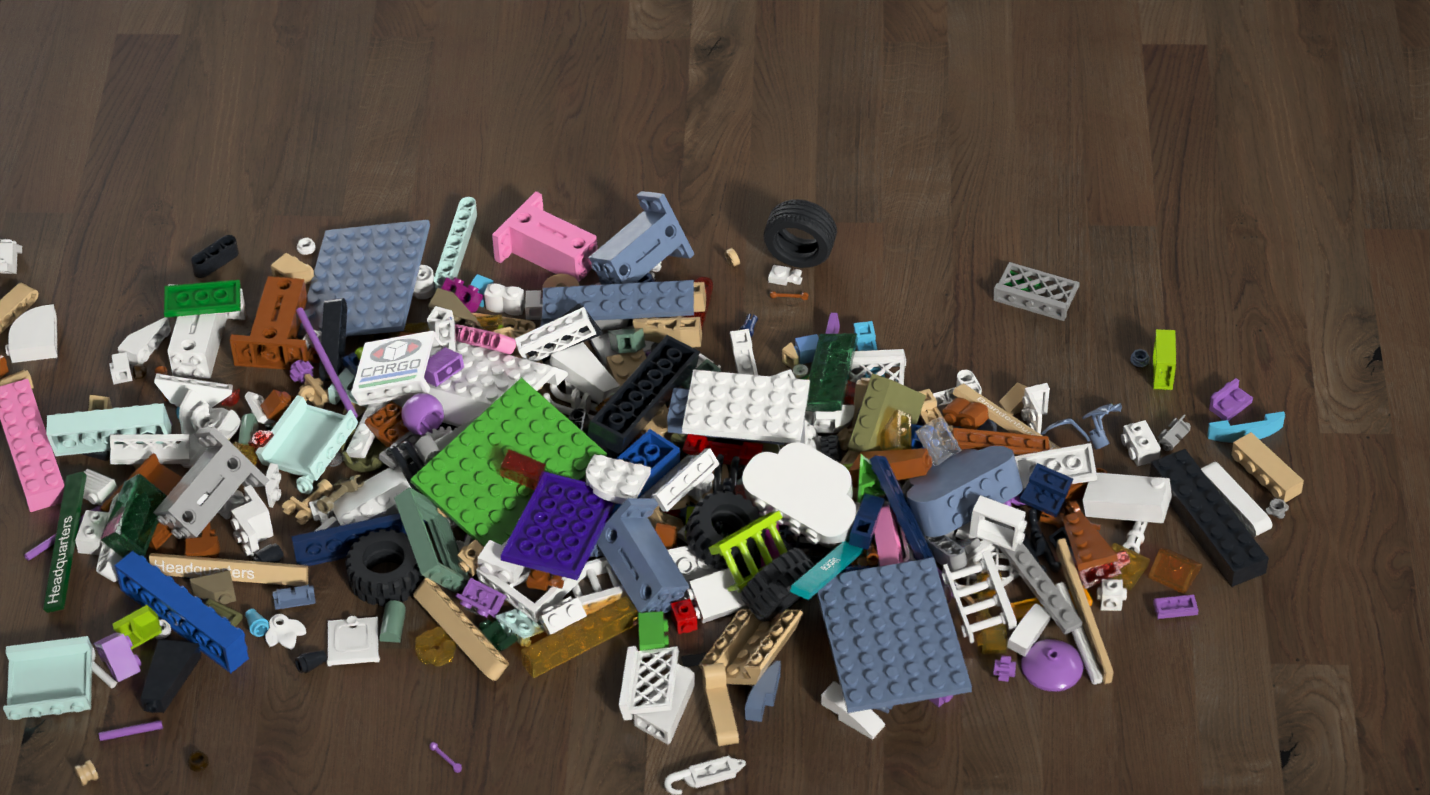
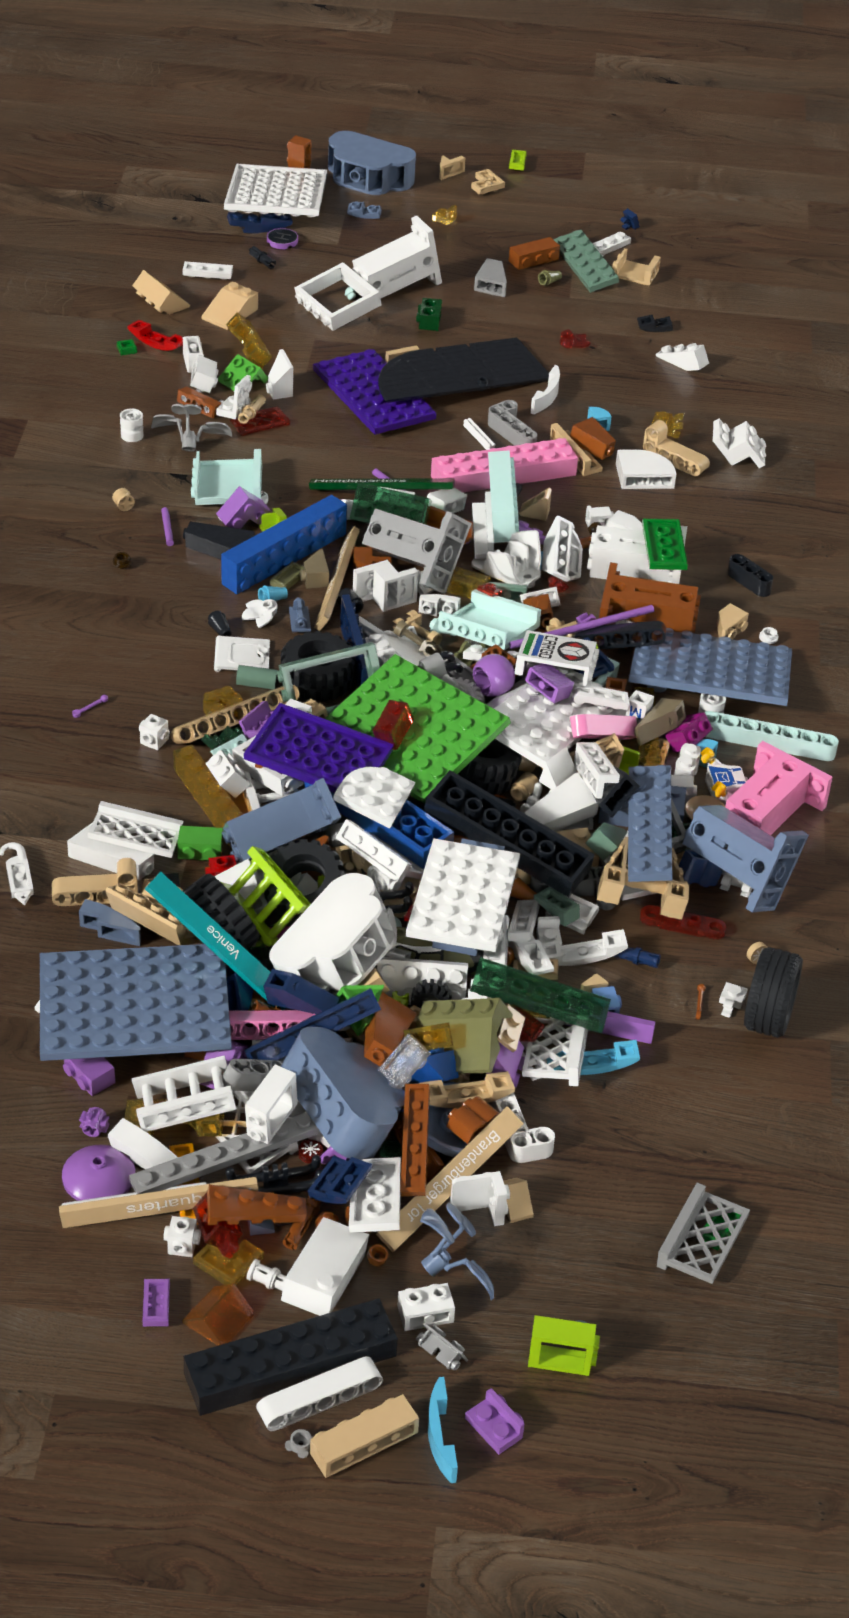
camera: 90 degrees right, 5 degrees down
(491, 691) = (154, 732): none -> white brick
(525, 273) = (722, 778): none -> torso

